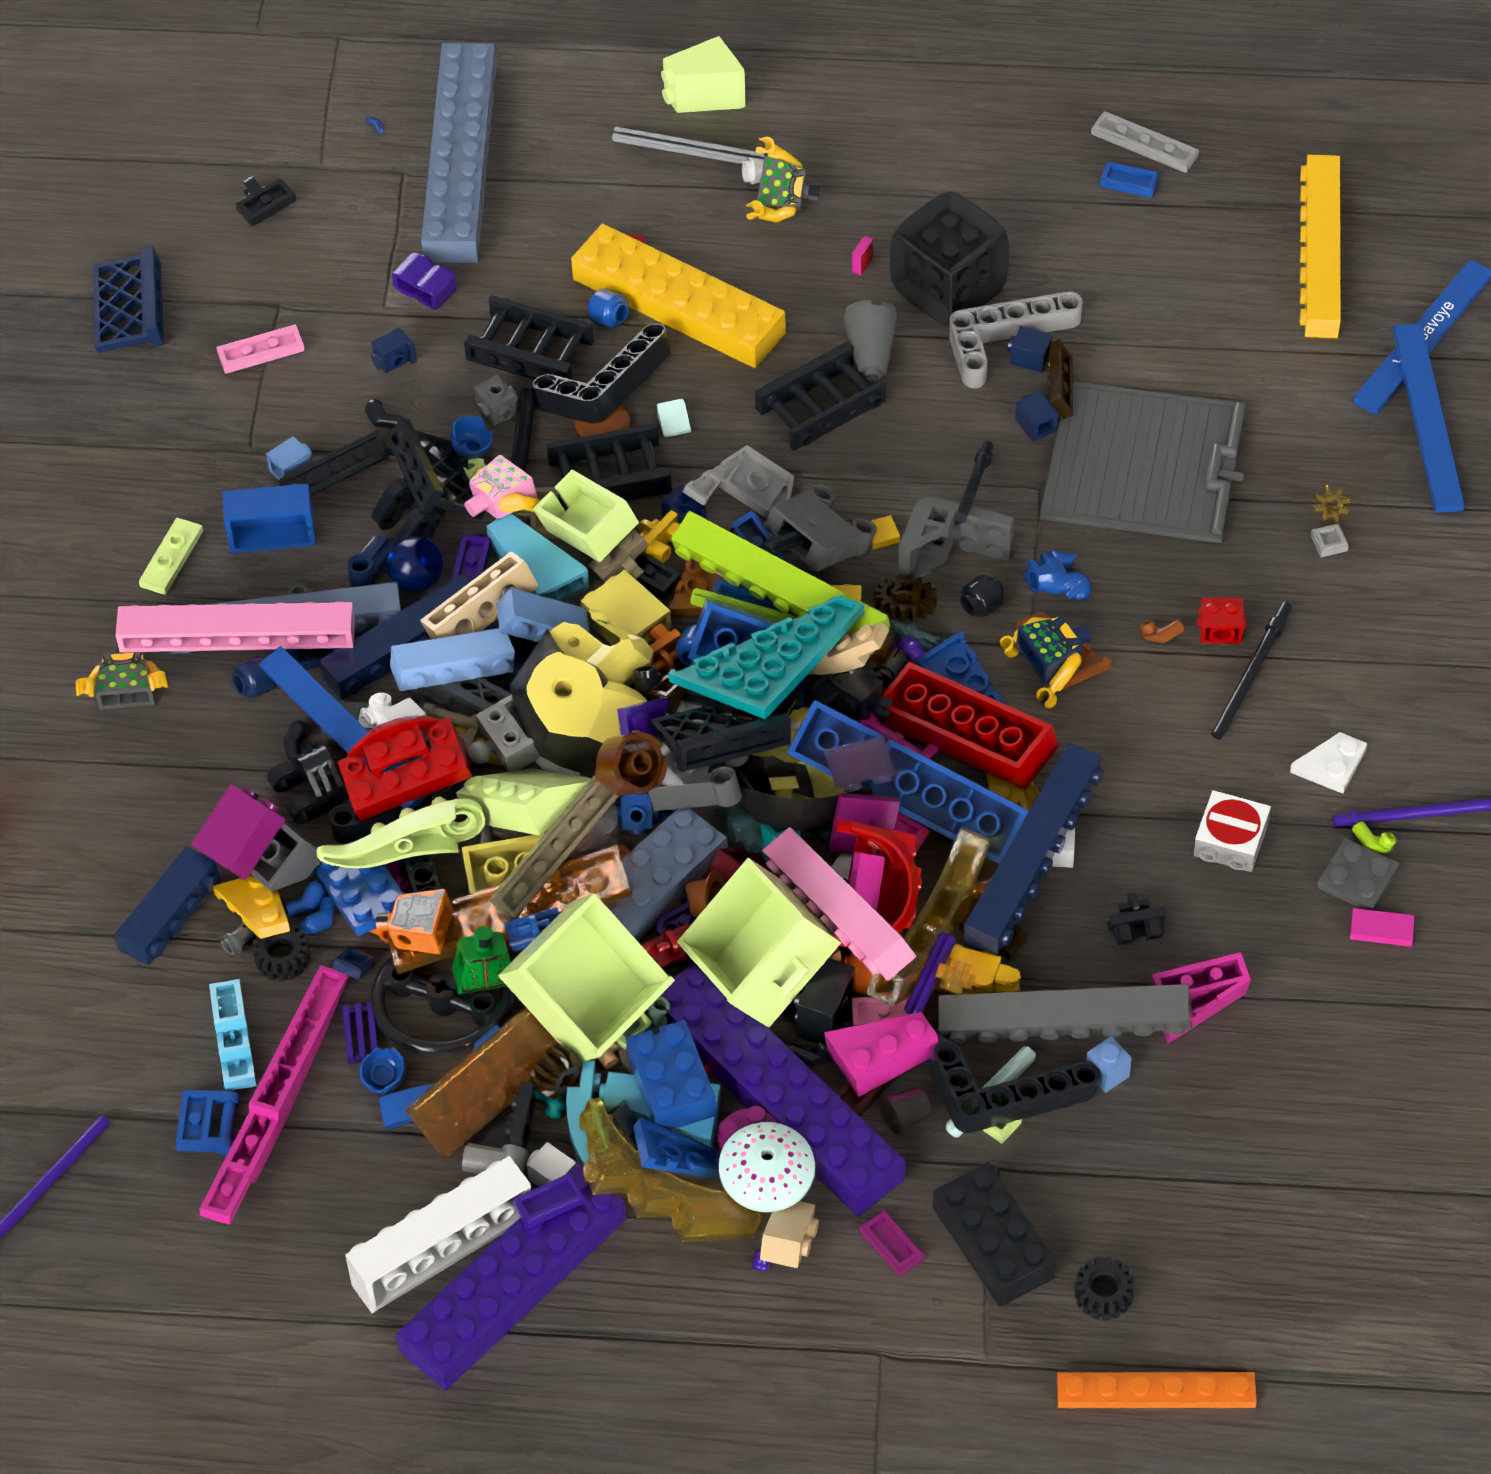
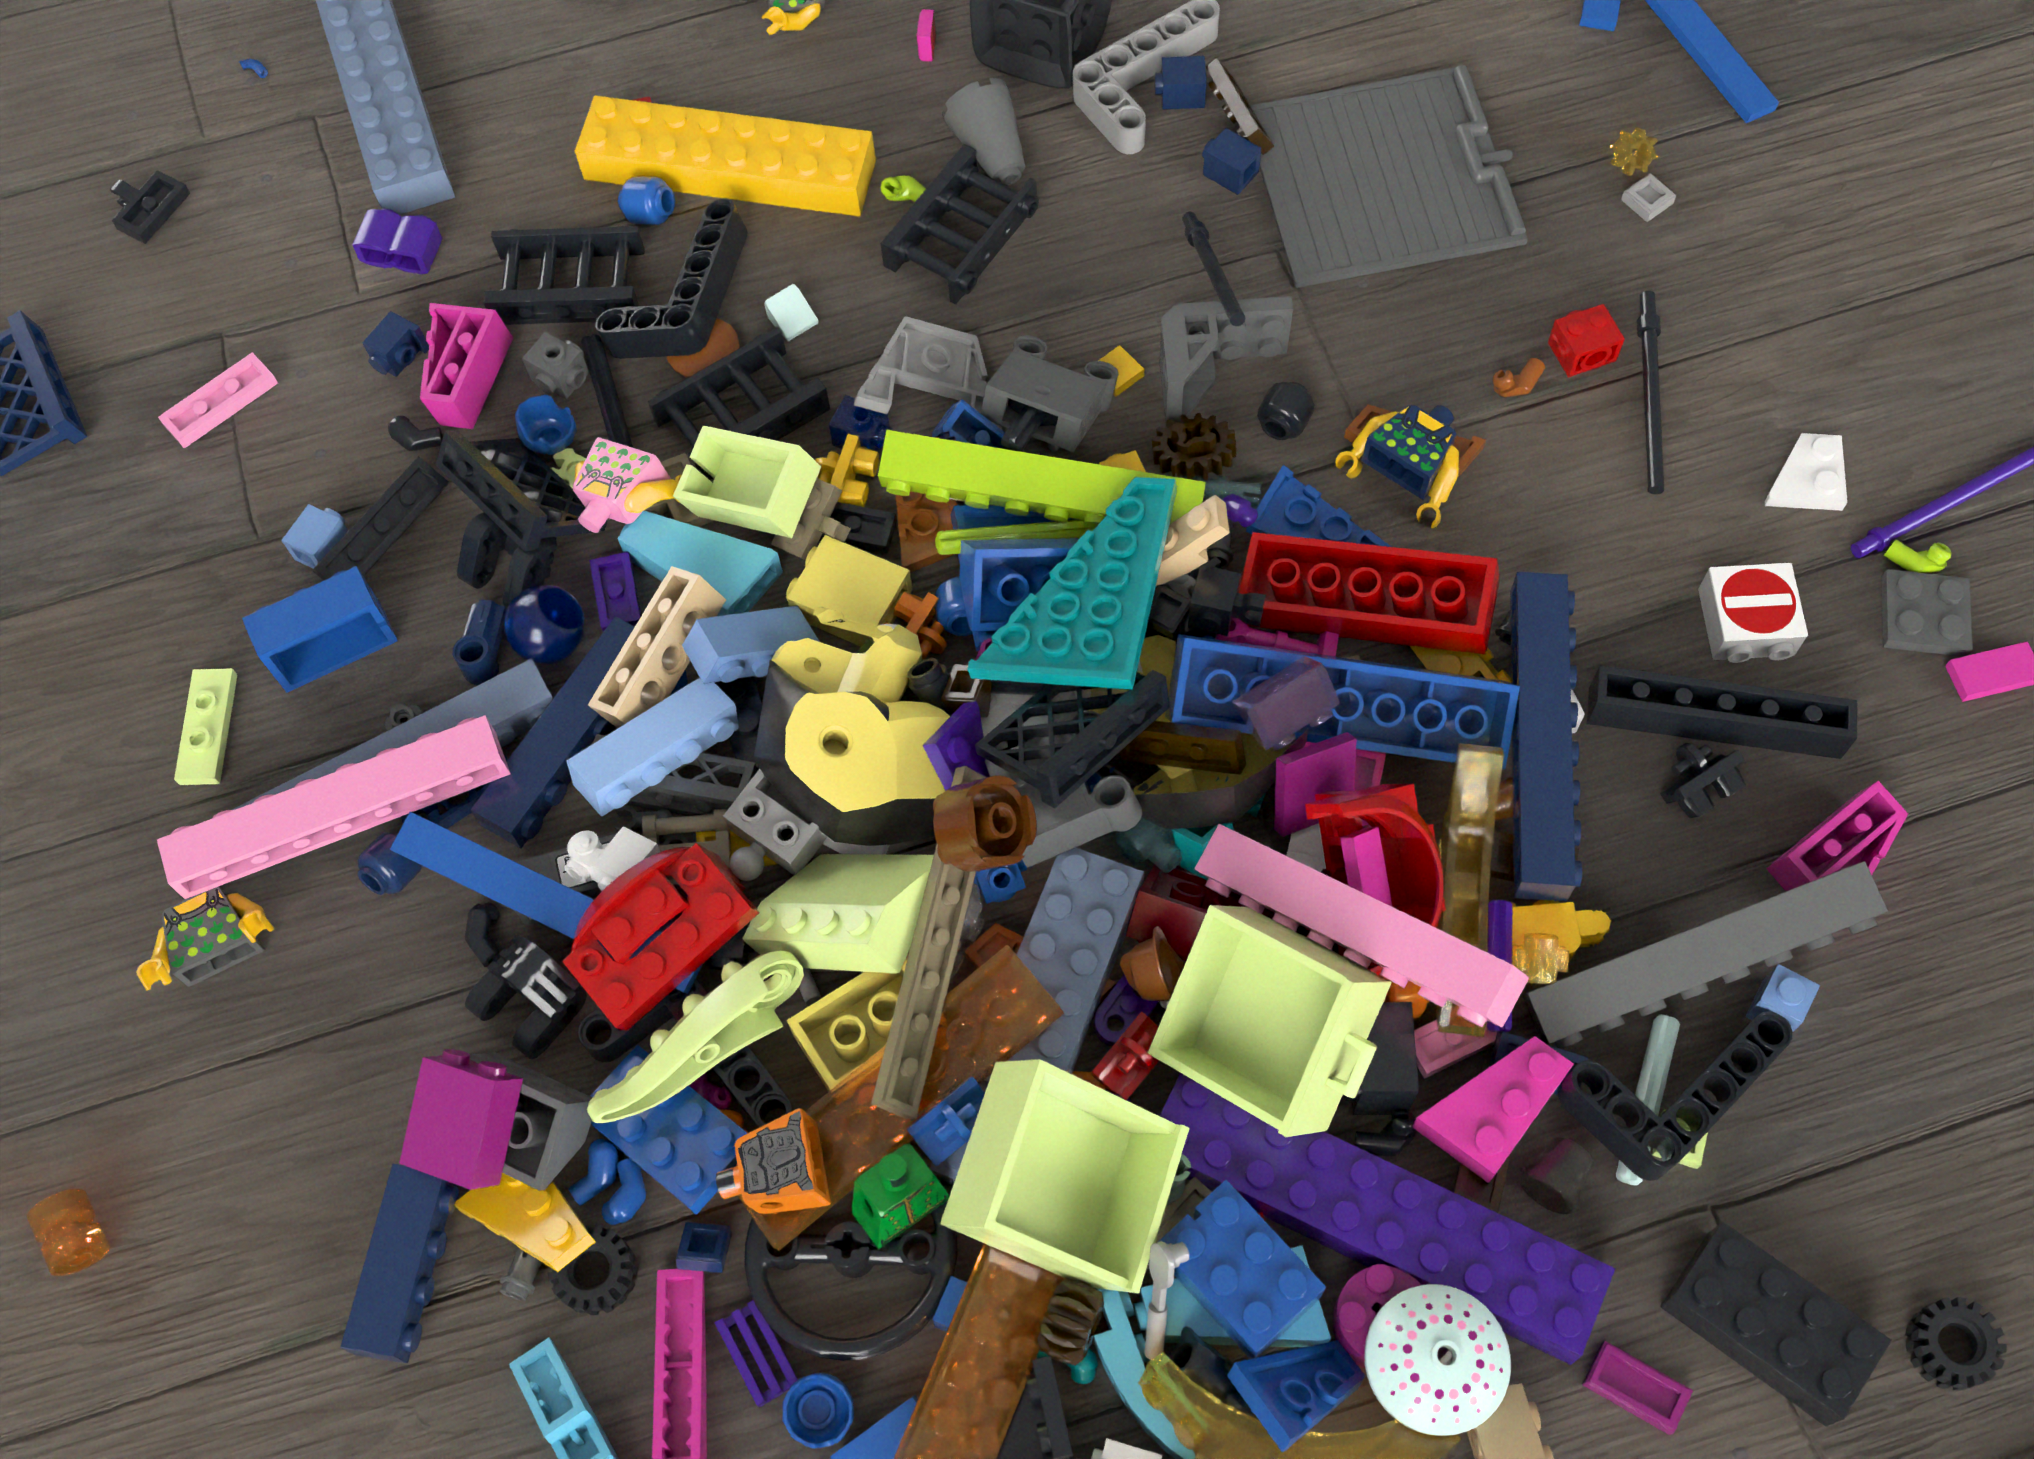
camera: 20 degrees left, 10 degrees up
(434, 377) = (462, 362): none -> dark pink wedge
(623, 1042) = (1162, 1263): none -> light grey piece
(789, 772) = (1188, 747): none -> dark brown plate
(791, 357) = (901, 188): none -> lime arm
(1052, 577) = (1356, 357): blue animal -> none
(1169, 882) = (1722, 712): none -> black brick

